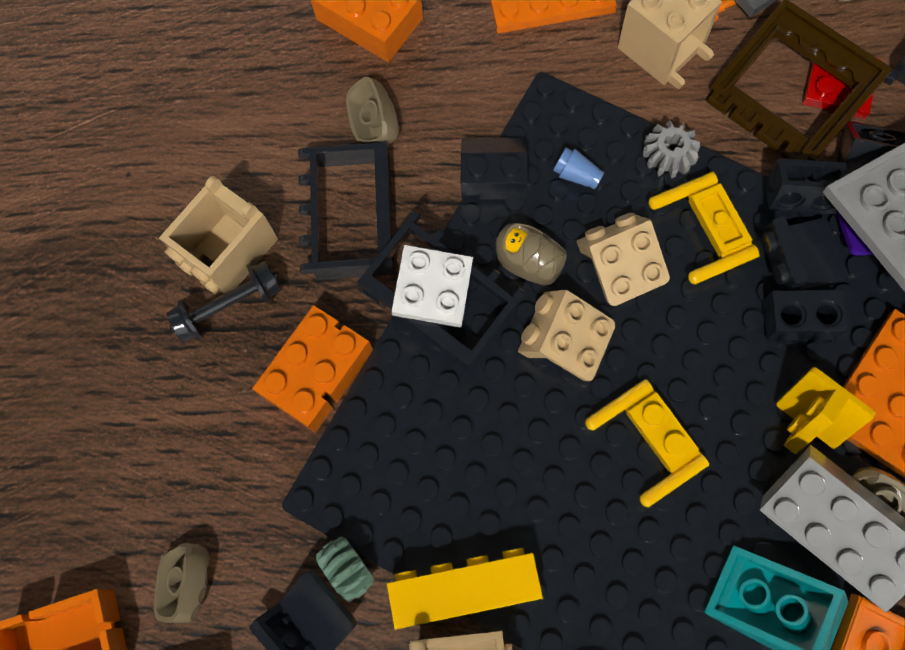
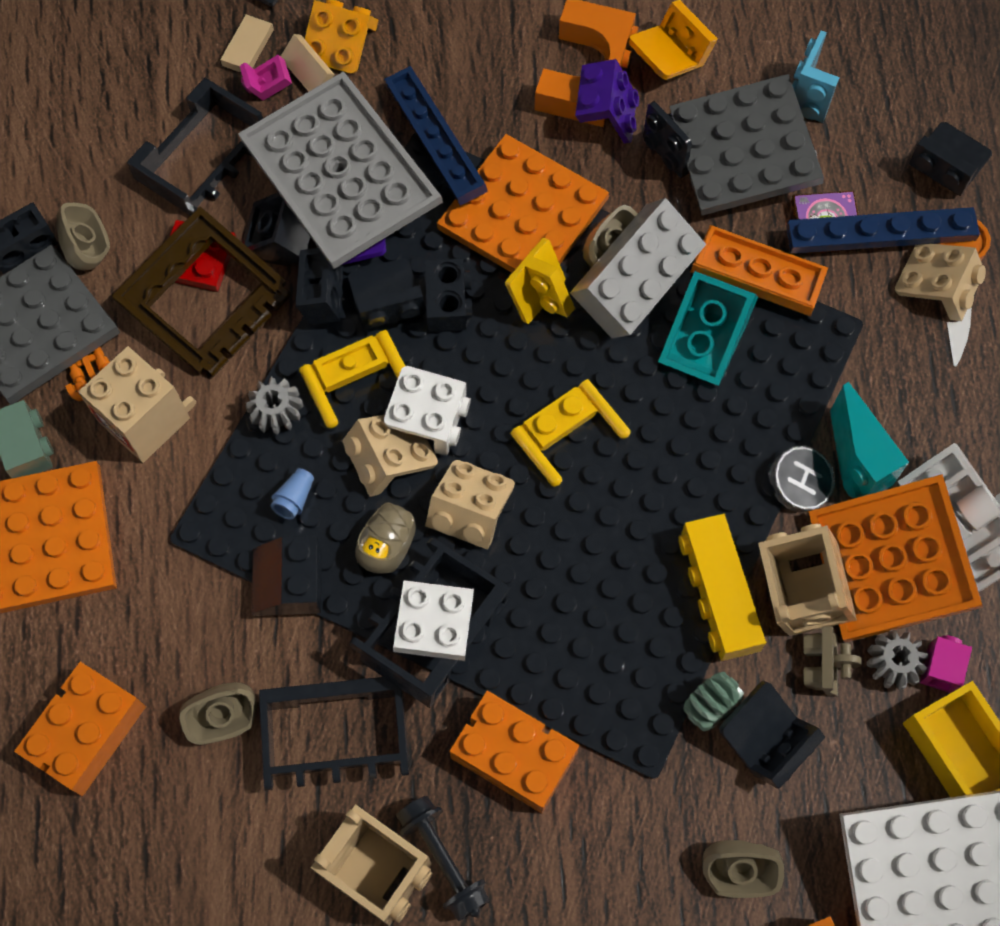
camera: 100 degrees left, 5 degrees down
(667, 291) = (428, 407): none -> white bracket

